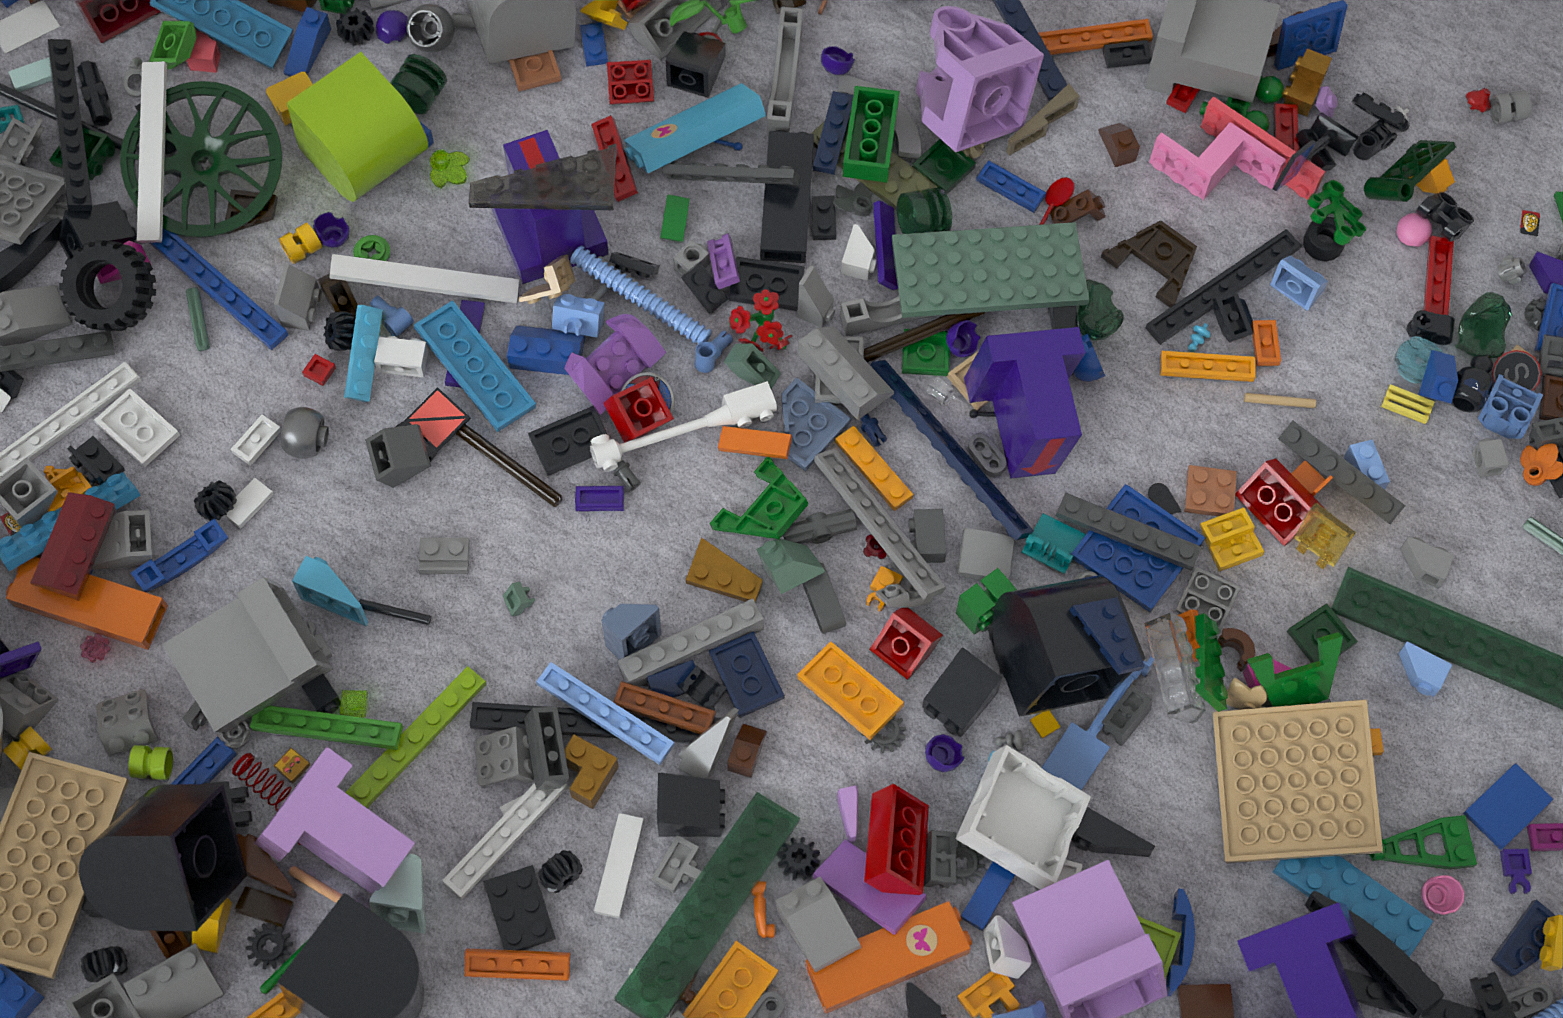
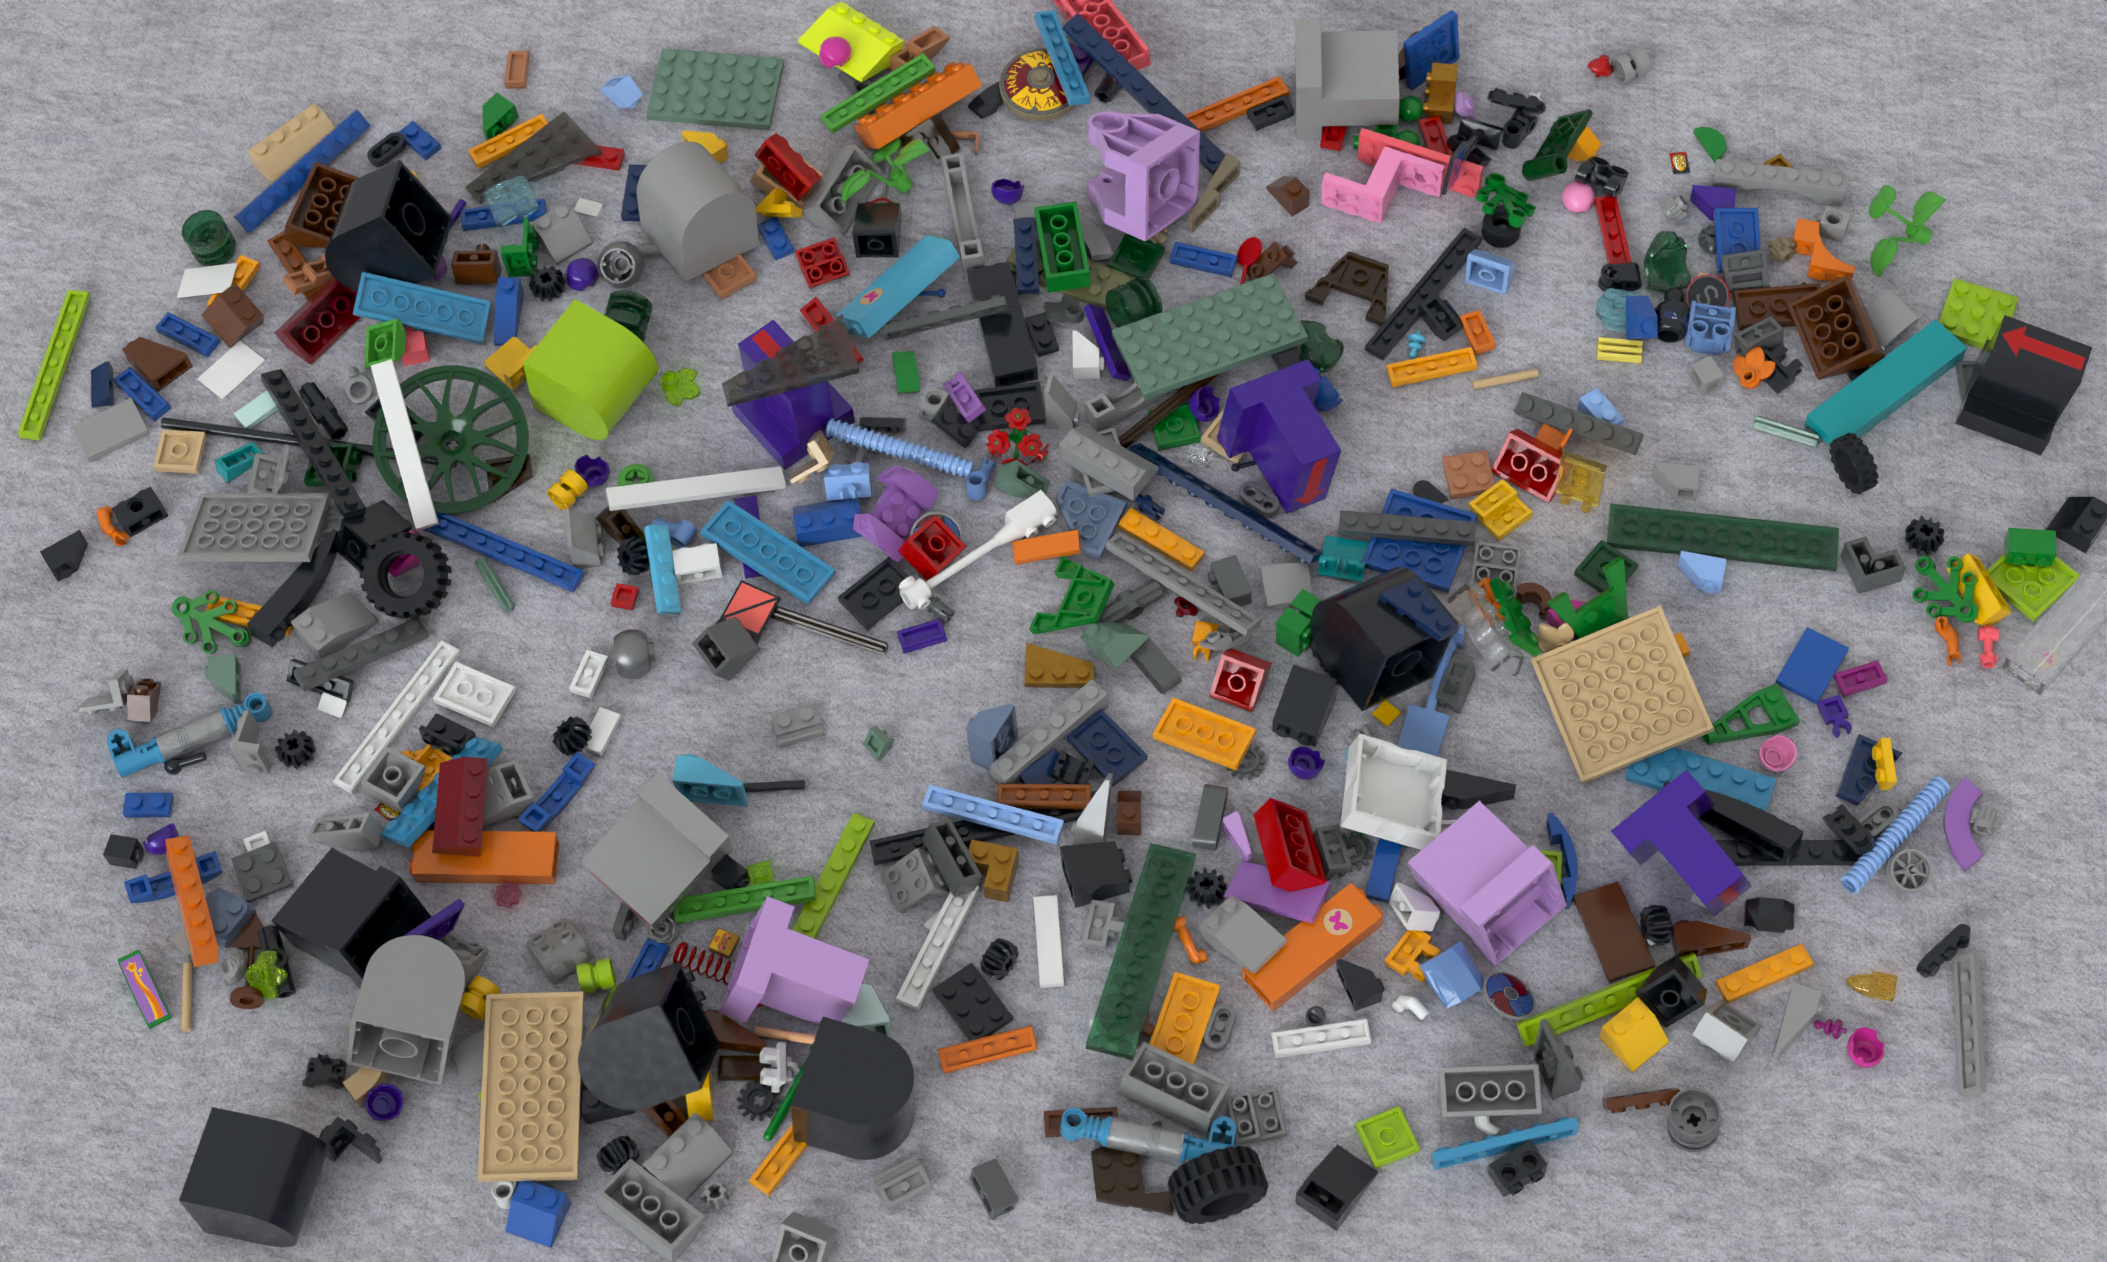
camera: 10 degrees left, 5 degrees down
(299, 907) = (781, 1068): none -> white hips
(827, 782) = (1210, 817): none -> dark grey beam

